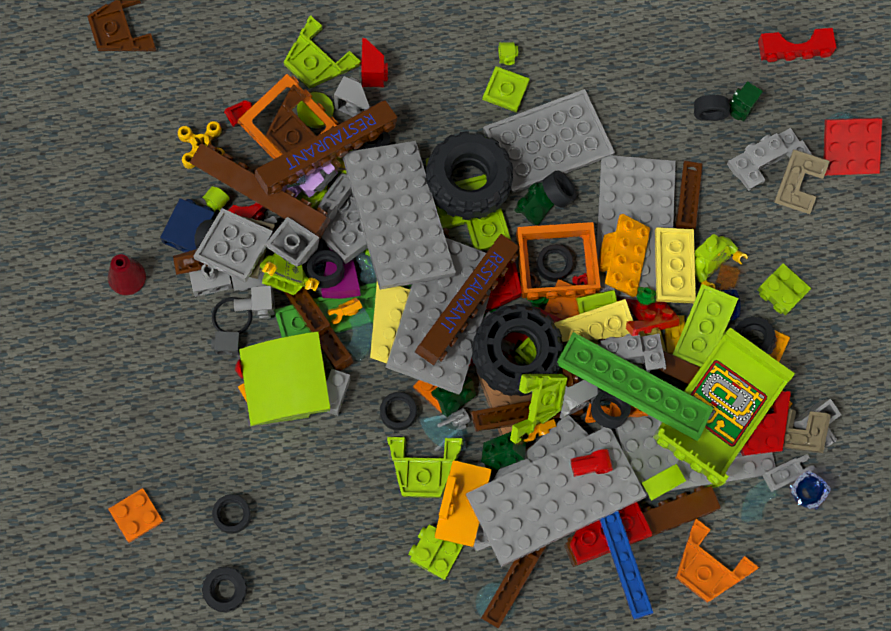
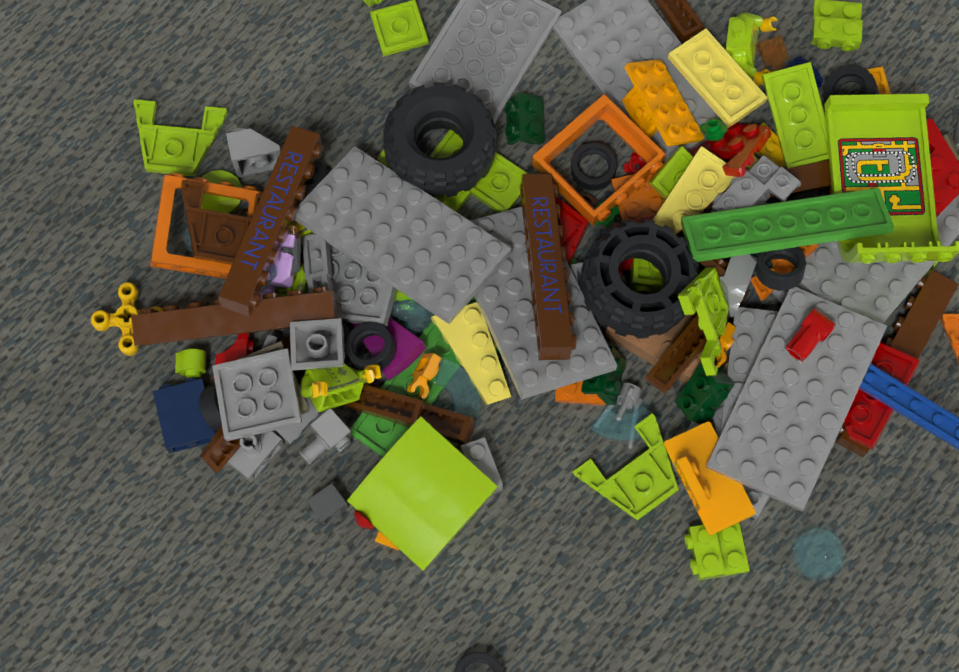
camera: 30 degrees left, 0 degrees up
(126, 275) = (160, 517): dark red cone -> none
(216, 308) = (285, 482): black tyre -> none
(237, 111) = (140, 255): red plate -> none
(373, 69) = (244, 102): red slope -> none
(398, 426) = (561, 417): black tyre -> none
(510, 588) = (823, 531): reddish brown slope -> none
(559, 189) = (539, 87): black tyre -> none
(663, 482) = (889, 300): lime slope -> none

